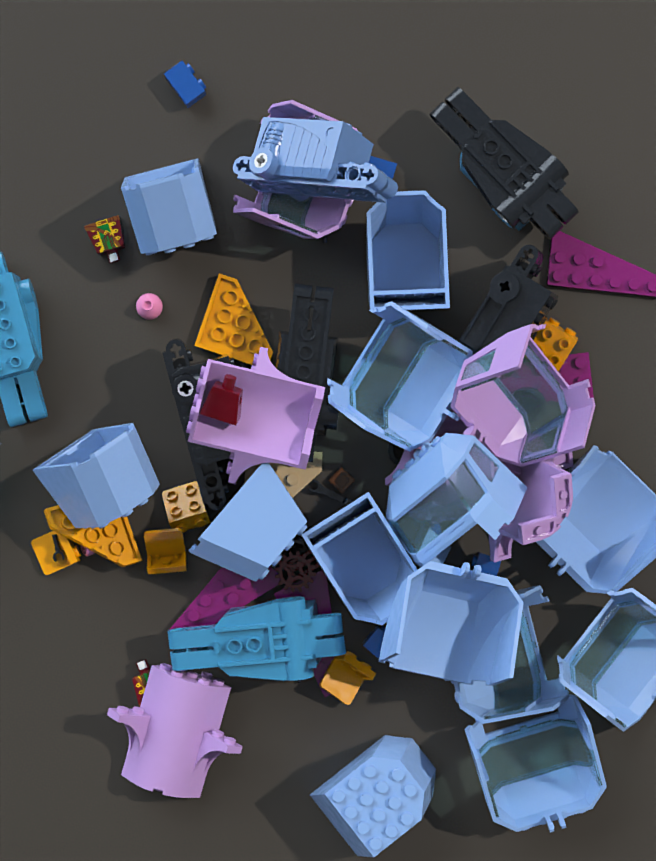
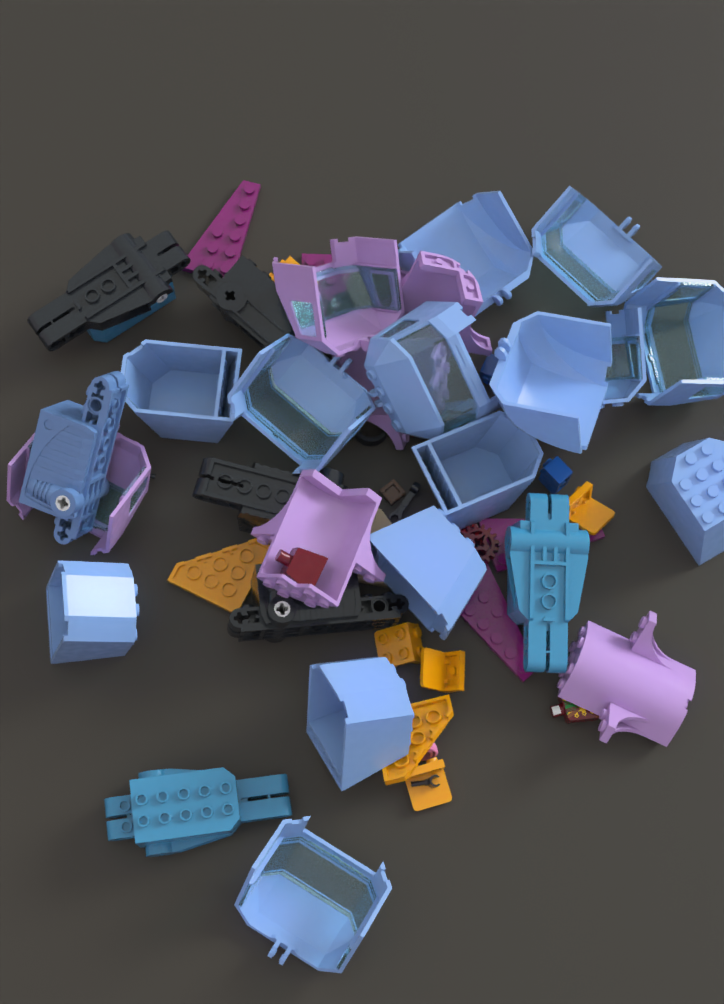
camera: 90 degrees left, 15 degrees down
(107, 237) = (110, 687): torso -> none
(149, 306) = (188, 656): bright pink brick -> none

